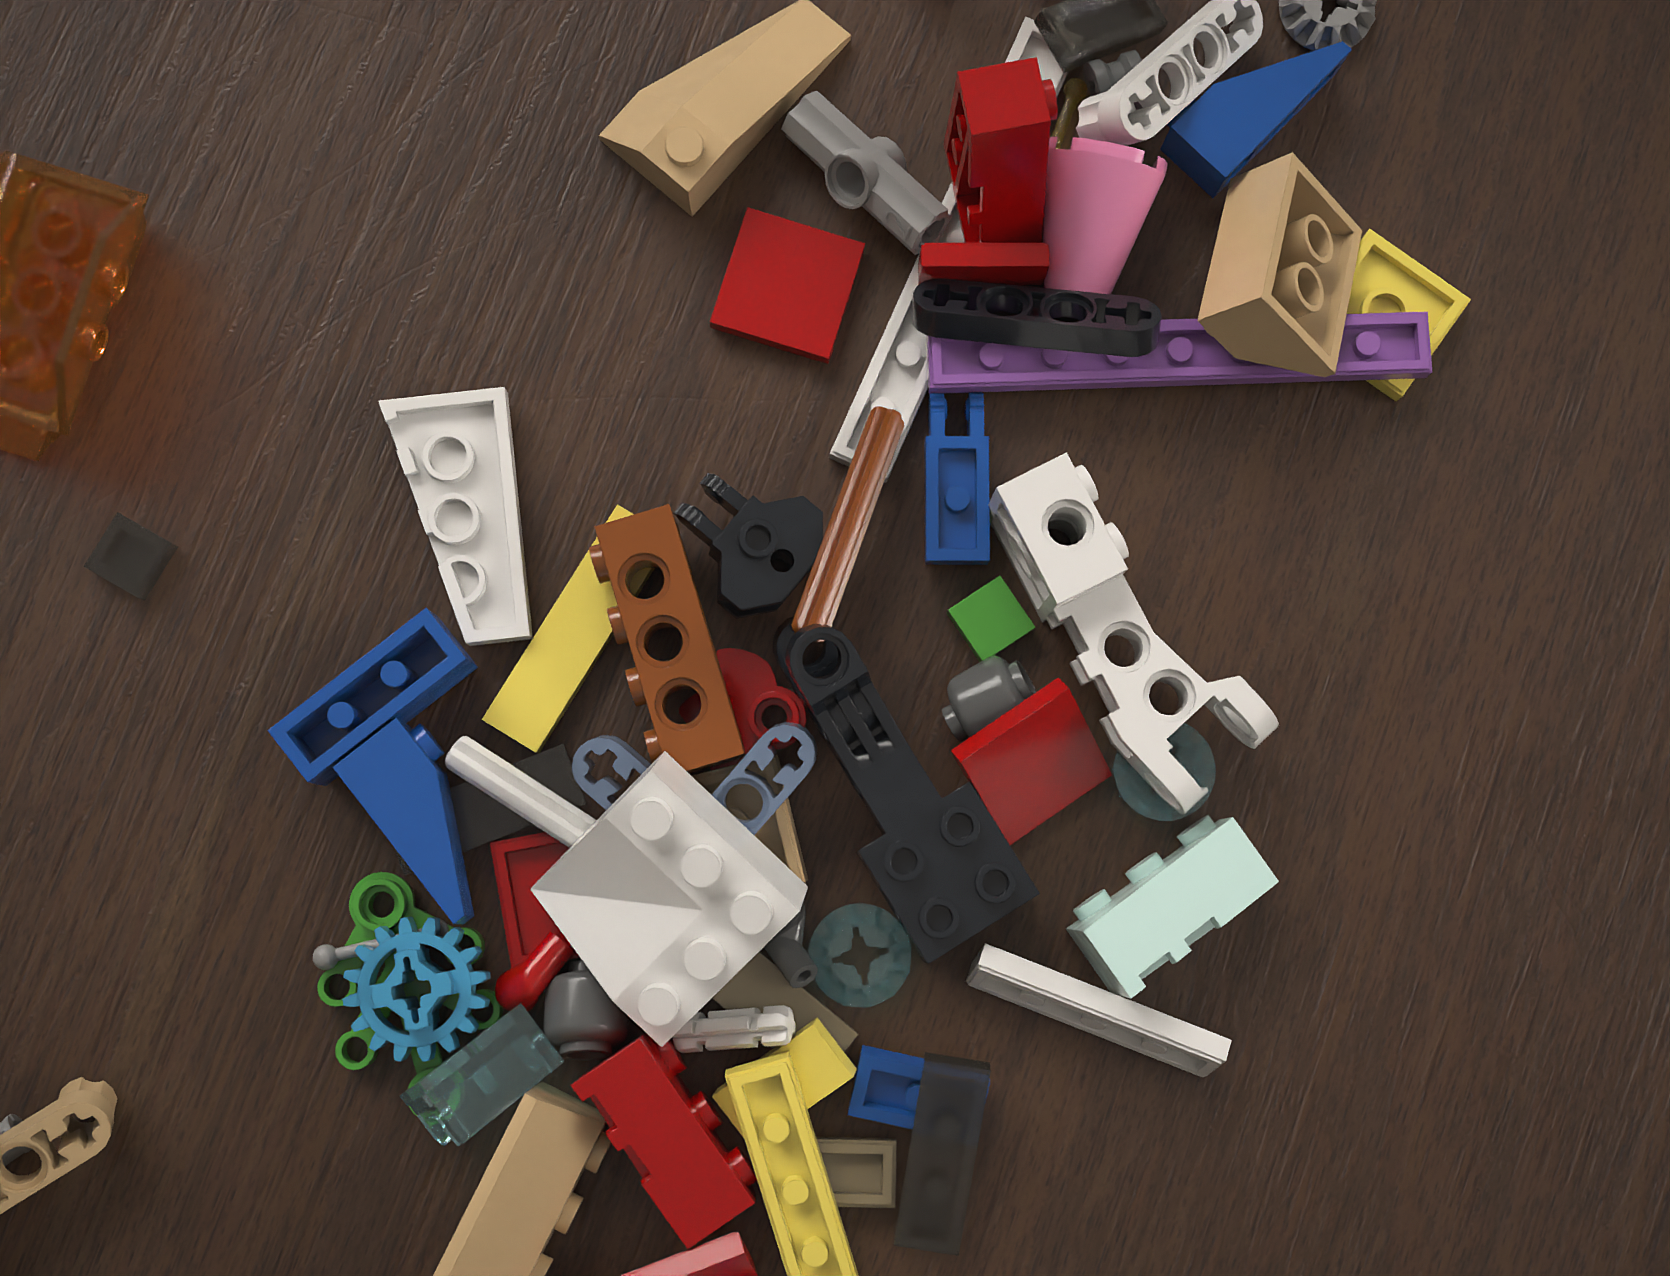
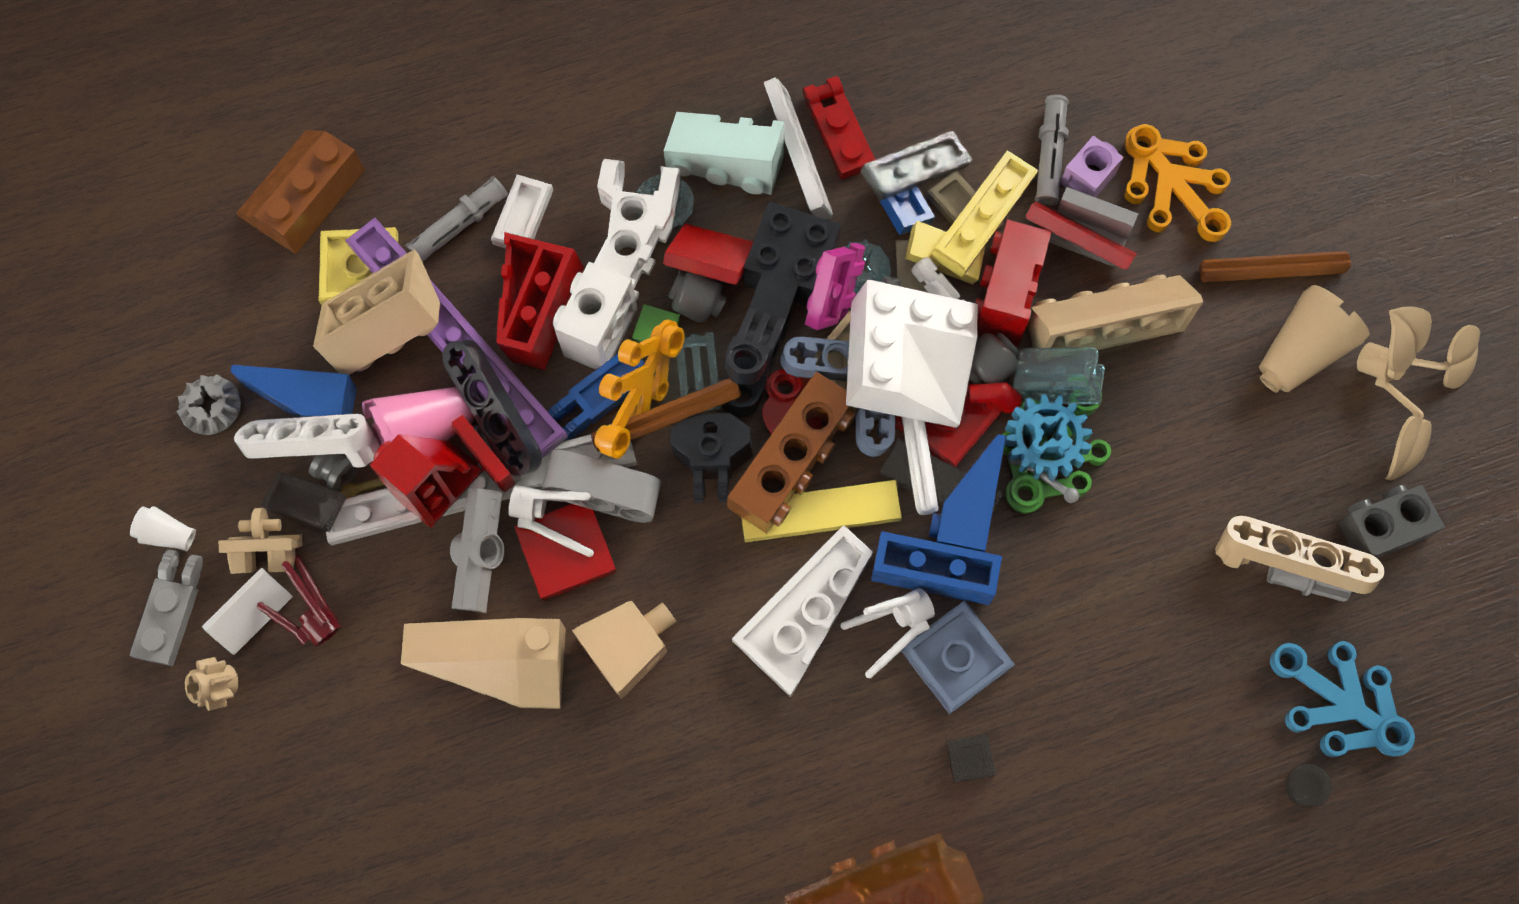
camera: 120 degrees left, 10 degrees down
(258, 642) = (957, 657): none -> sand blue tile
(361, 626) = (909, 610): none -> white plant
(606, 258) = (625, 643): none -> tan torso
(823, 376) = (610, 486): none -> light grey beam
(844, 879) = (834, 285): none -> dark pink plate
(872, 276) = (531, 503): none -> white plant
(905, 508) = (663, 343): none -> light orange plant
(906, 608) = (694, 342): none -> clear light blue tile
(1089, 1101) = (838, 127): none -> red plate
(1151, 484) = (534, 287): none -> red wedge
(1295, 574) = (522, 209): none -> white tile
(1352, 498) = (466, 212): none -> light grey pin
(1552, 316) = (302, 189): none -> dark orange slope

